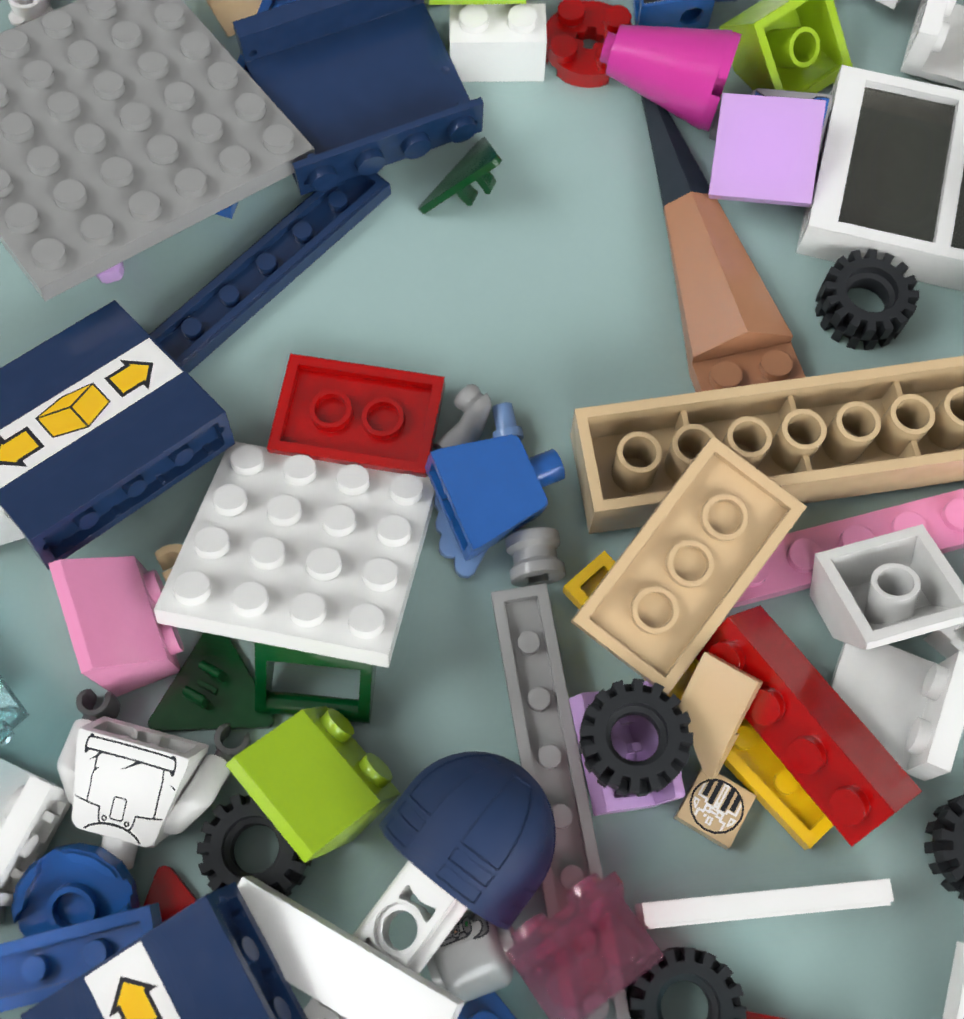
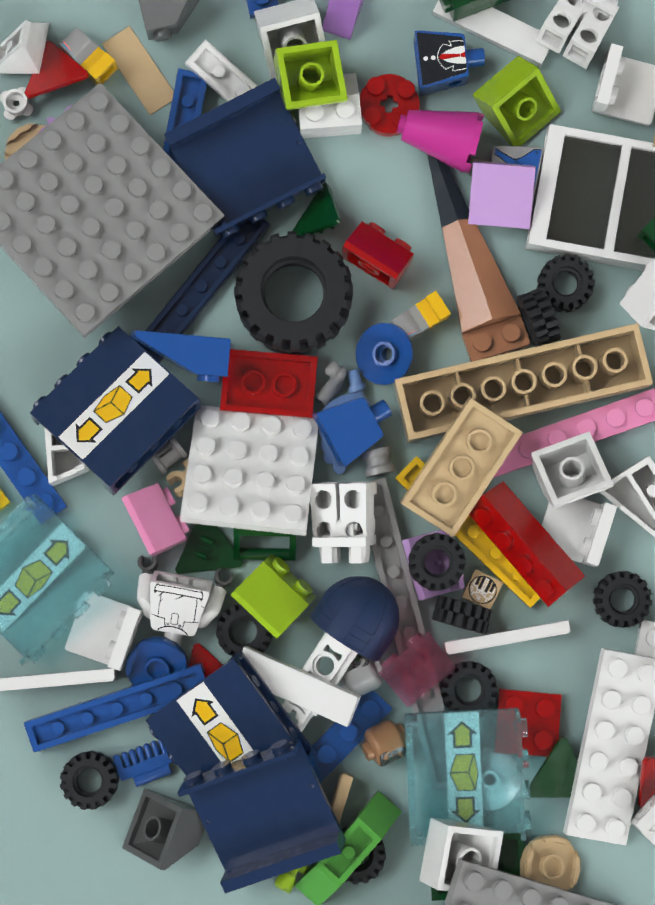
camera: 10 degrees left, 15 degrees up
(165, 516) = (168, 455): none -> light grey bush
(223, 338) = (193, 354): none -> blue slope
(413, 216) = (285, 252): none -> black tyre
(463, 646) = (343, 518): none -> white hips
(544, 370) = (372, 353): none -> blue dish
(554, 232) = (377, 254): none -> red slope
(623, 332) = (423, 316): none -> leg
(679, 849) = (462, 614): none -> black tyre
(717, 705) = (478, 542): tan slope -> none
(827, 333) = (538, 317): none -> black tyre

